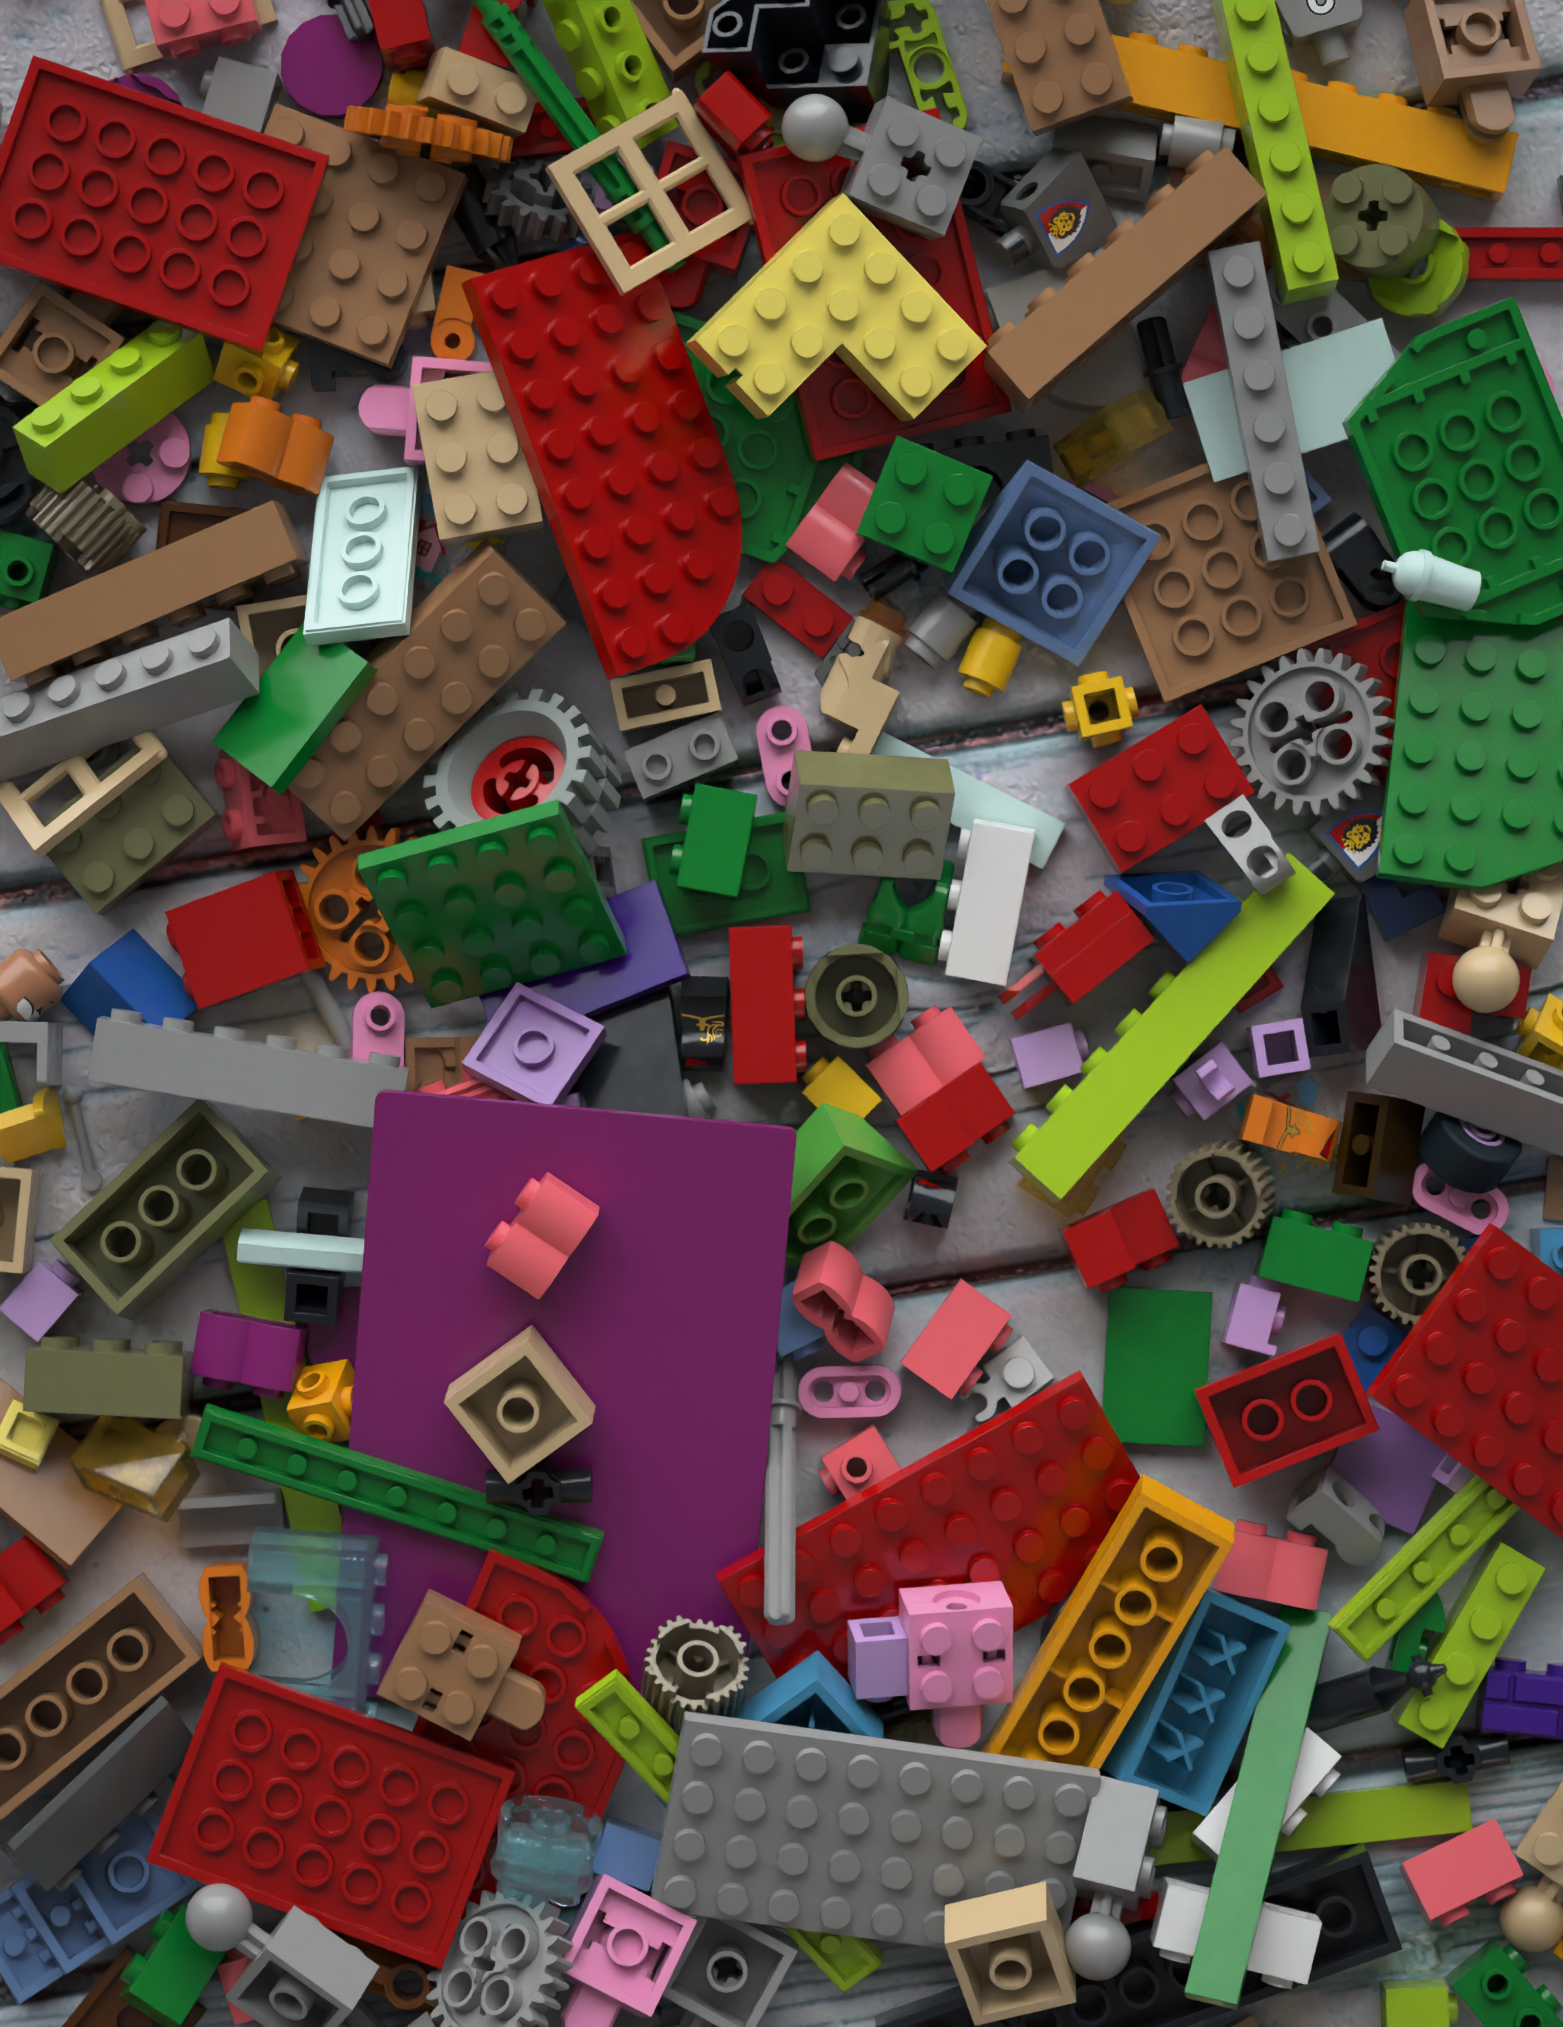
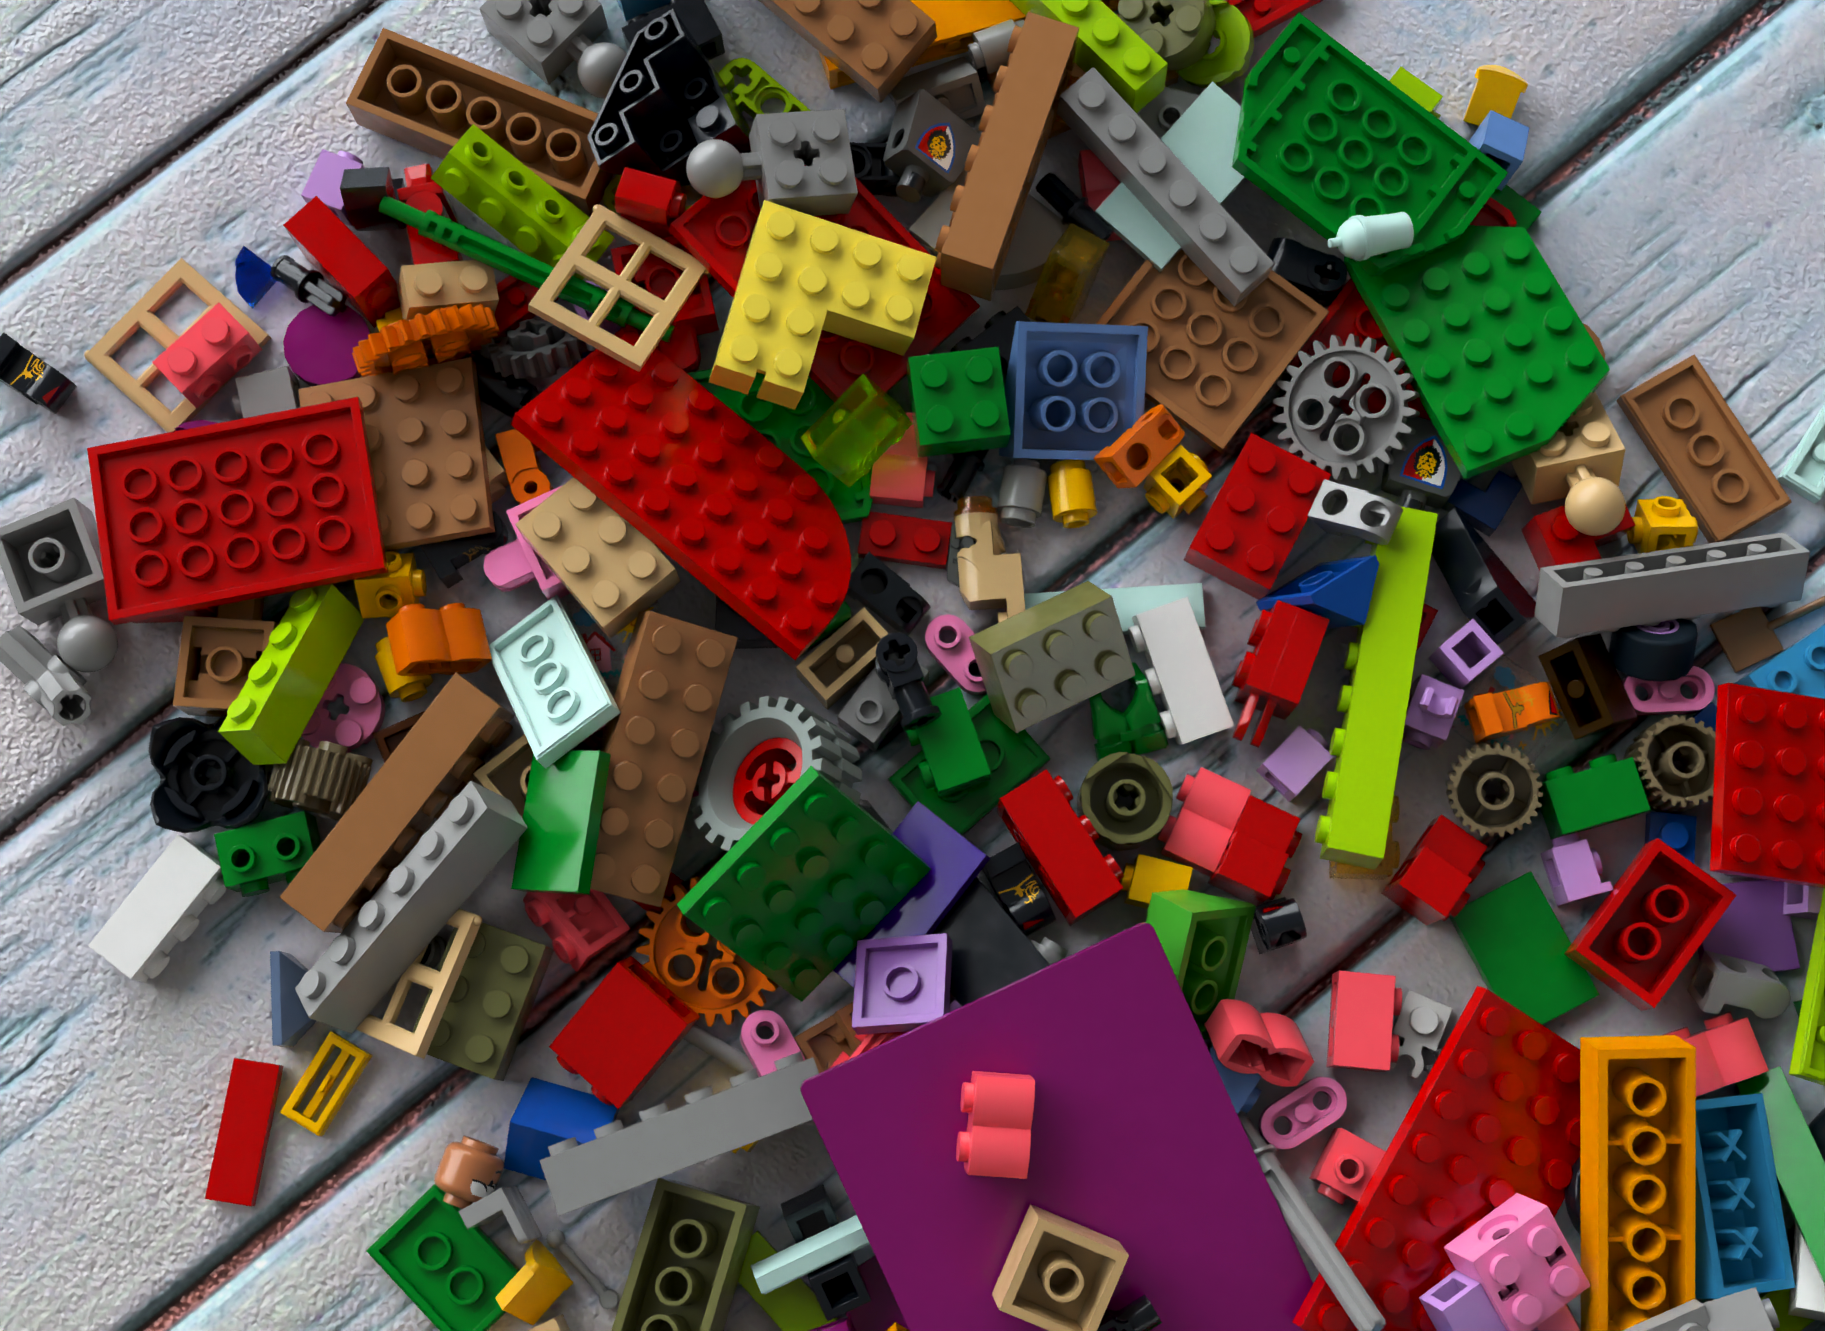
camera: 30 degrees left, 10 degrees down
(705, 761) = (905, 680): none -> black connector
(805, 477) = (856, 431): none -> clear neon green brick
(1082, 655) = (1140, 448): none -> orange leg

